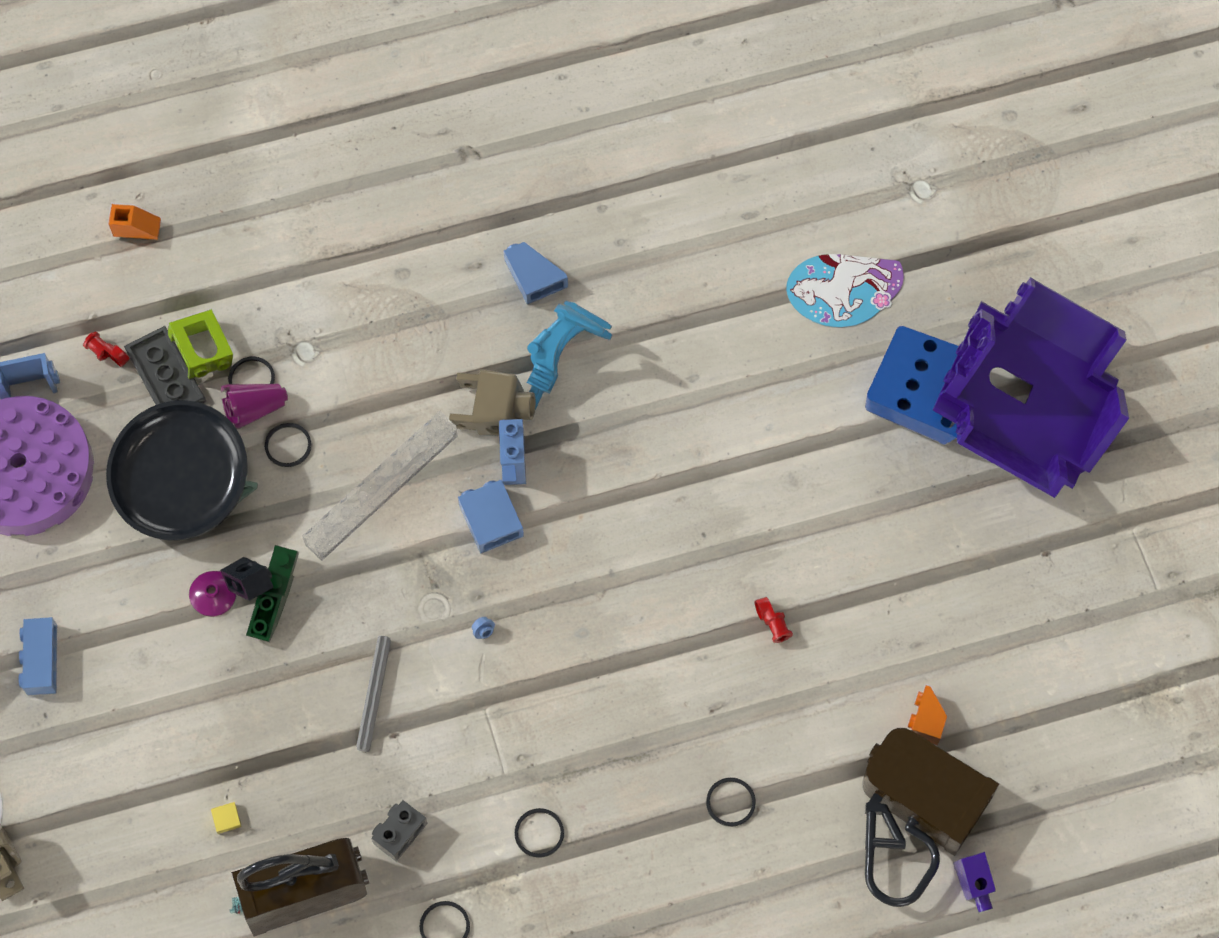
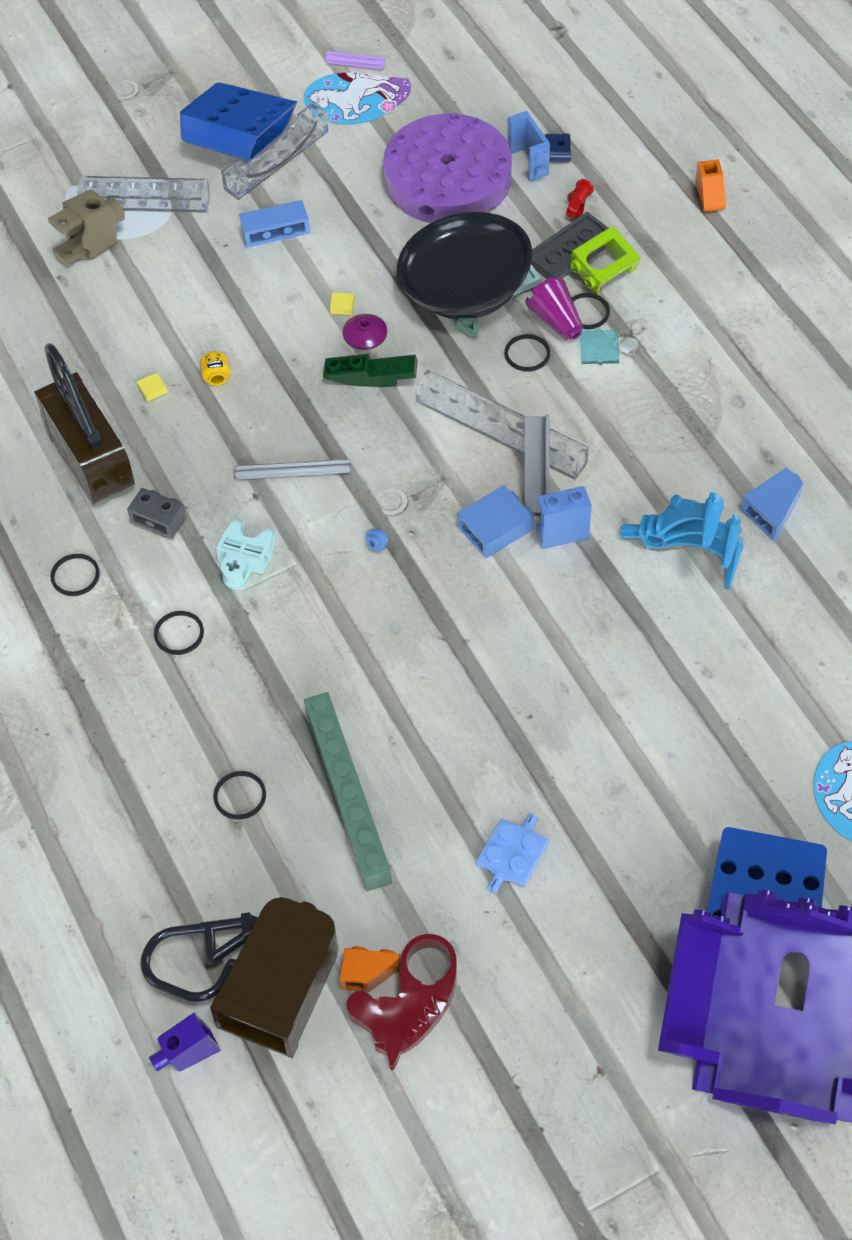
camera: 80 degrees right, 10 degrees down
(22, 347) = (559, 147): none -> dark blue piece
(170, 608) = (342, 303): none -> light yellow tile
(223, 748) = (215, 368): none -> yellow head
(247, 578) = (376, 340): black brick -> none
(301, 377) = (599, 347): none -> clear light blue piece
(447, 458) = (536, 460): none -> light grey panel
(467, 755) = (243, 554): none -> light aqua piece
(496, 399) = (614, 494): dark tan piece -> none
(752, 702) = (348, 792): none -> sand green brick
(774, 620) = (445, 796): red connector -> none
(839, 577) = (512, 852): none -> light blue plate
(979, 692) = (406, 1020): none -> dark red animal

